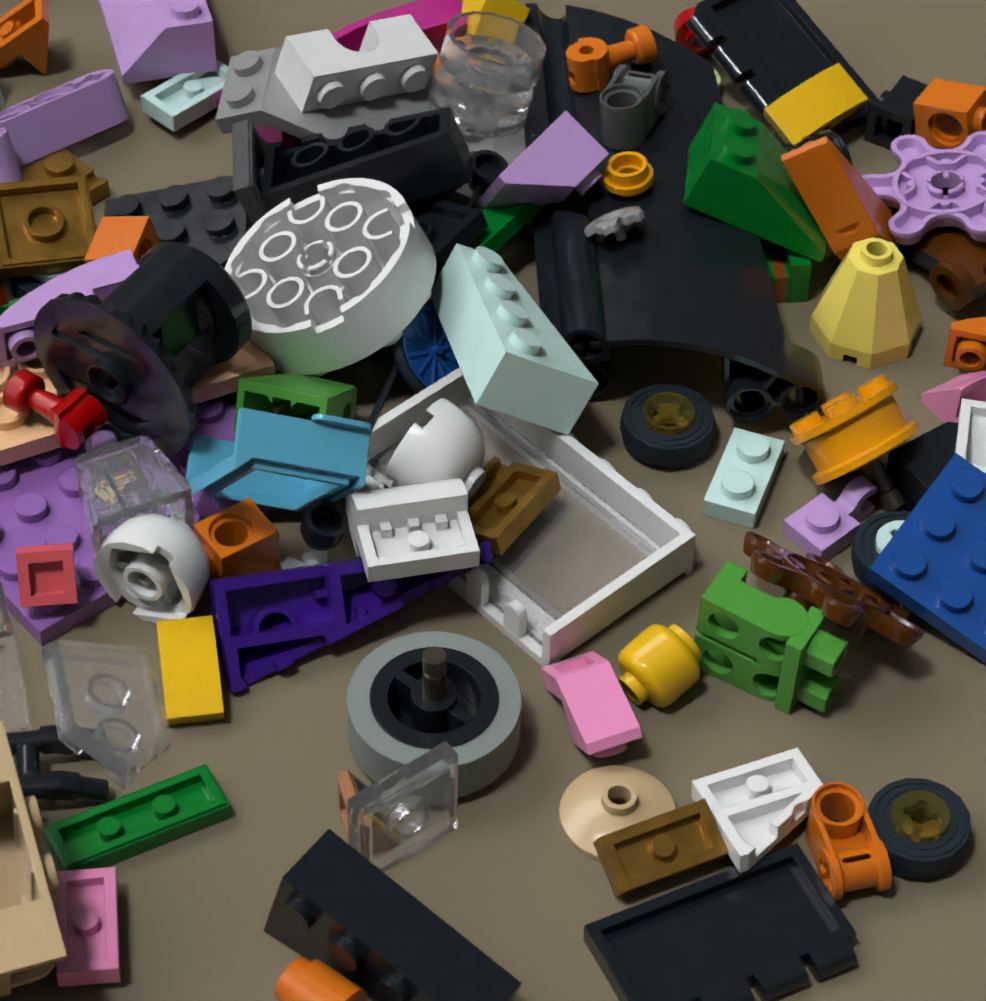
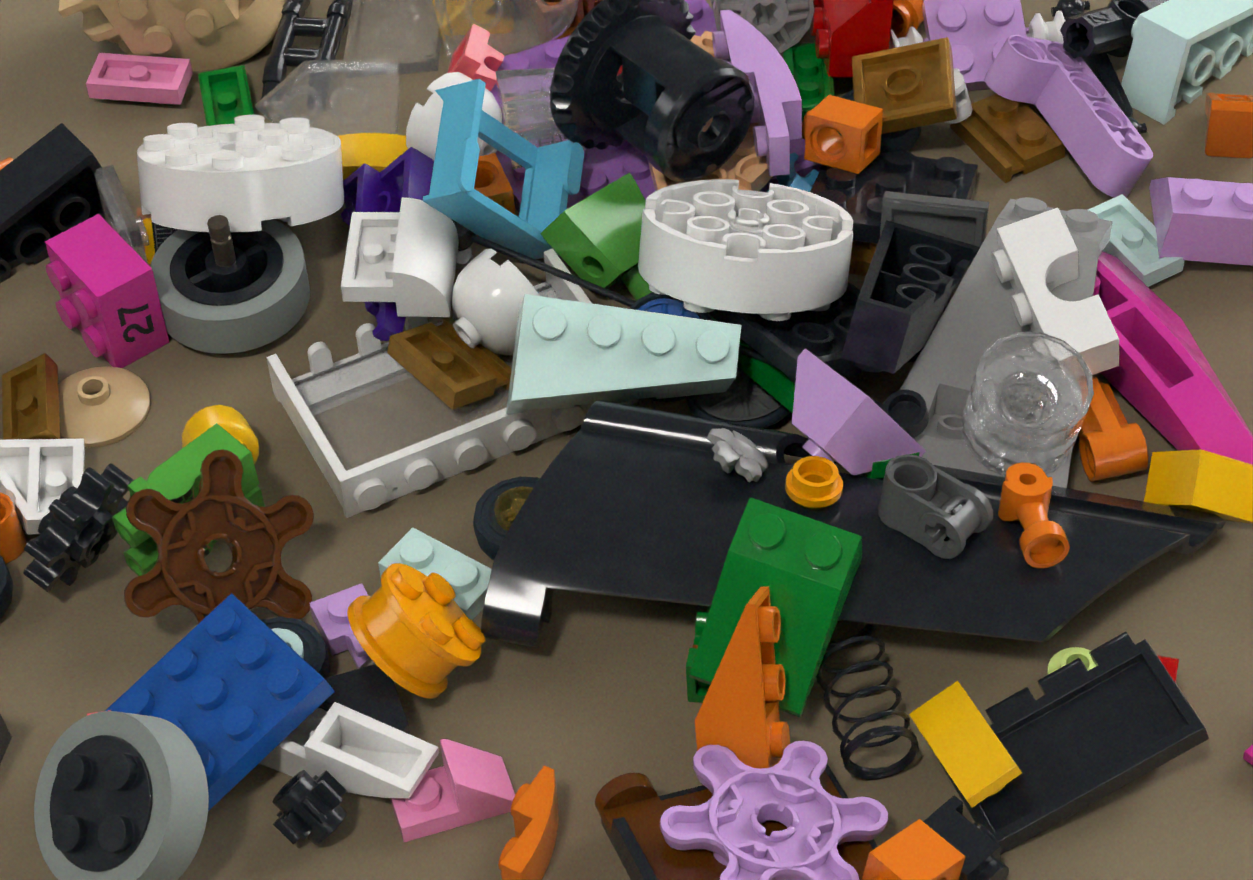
camera: 110 degrees right, 0 degrees up
(304, 708) = (240, 172): none -> white brick
(497, 802) = (106, 292): none -> dark pink brick
(593, 704) = (185, 387): bright pink slope -> none
(839, 707) = (77, 527): none -> black gear
(868, 307) = (624, 719): light yellow cone -> none

